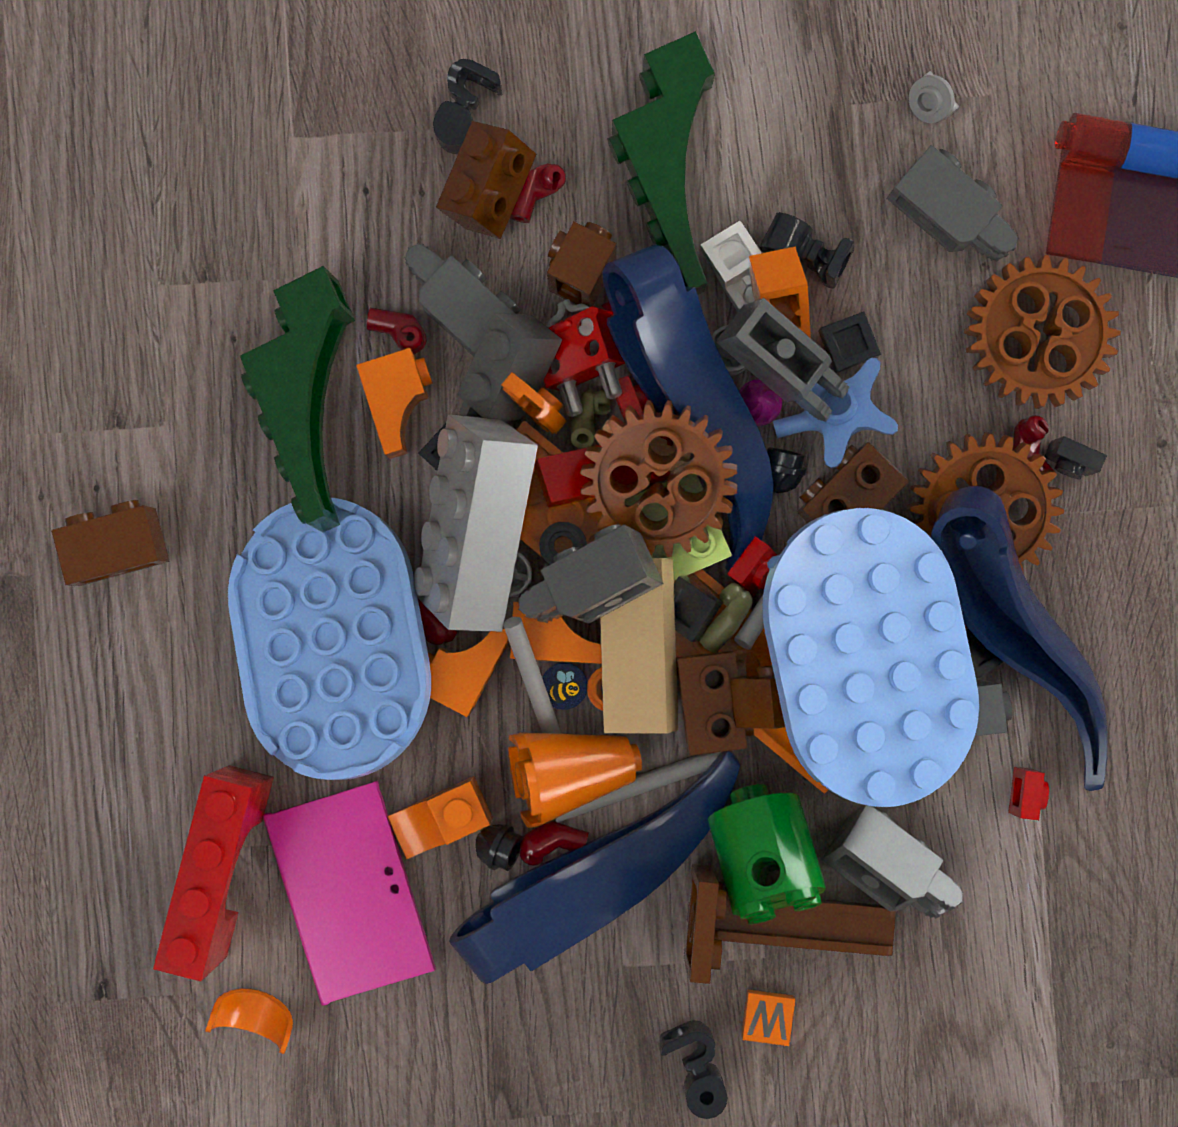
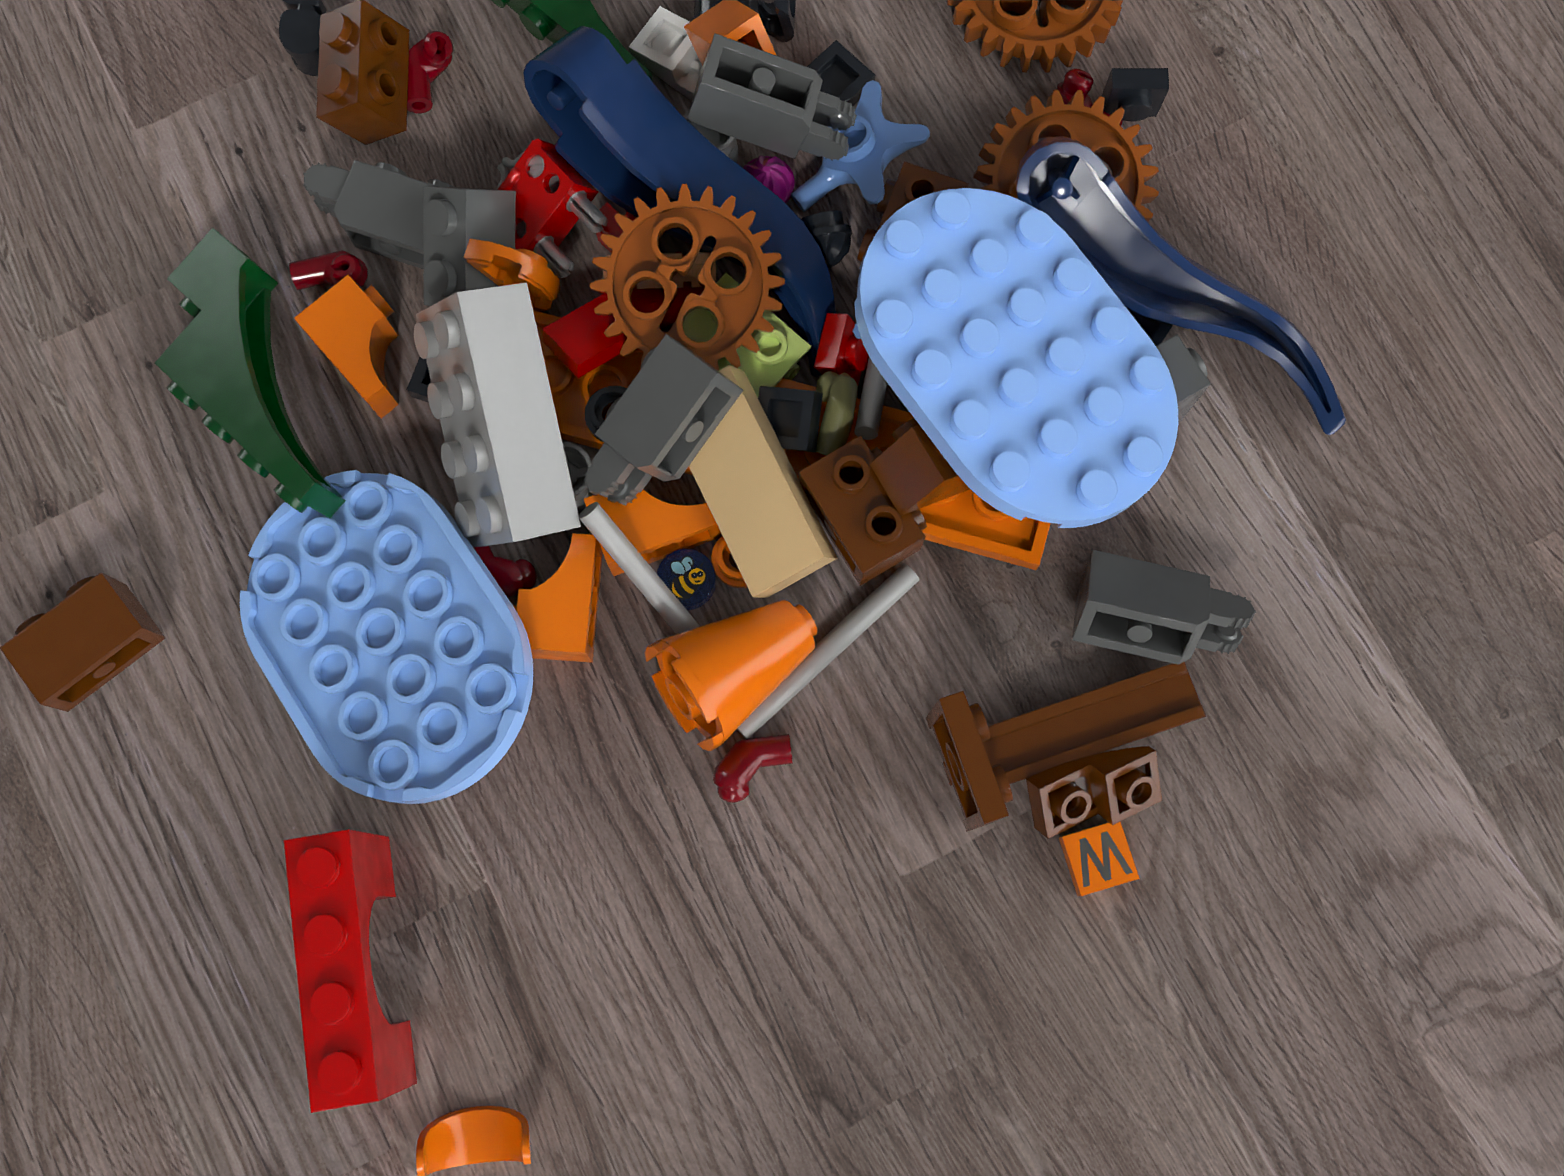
camera: 25 degrees left, 10 degrees down
(343, 897) = (525, 940): dark pink container -> none
(441, 818) = (605, 791): orange arch -> none
(498, 846) = (689, 795): black plate -> none
(579, 262) = (498, 106): reddish brown brick -> none
(584, 424) = (581, 276): olive arm -> none
(590, 885) = (817, 788): dark blue animal -> none
(703, 1084) = (1063, 972): black leg -> none
(761, 836) = (1005, 653): green cylinder -> none
(799, 971) = (1103, 784): none -> reddish brown slope
(1028, 793) = (1266, 465): red plate -> none

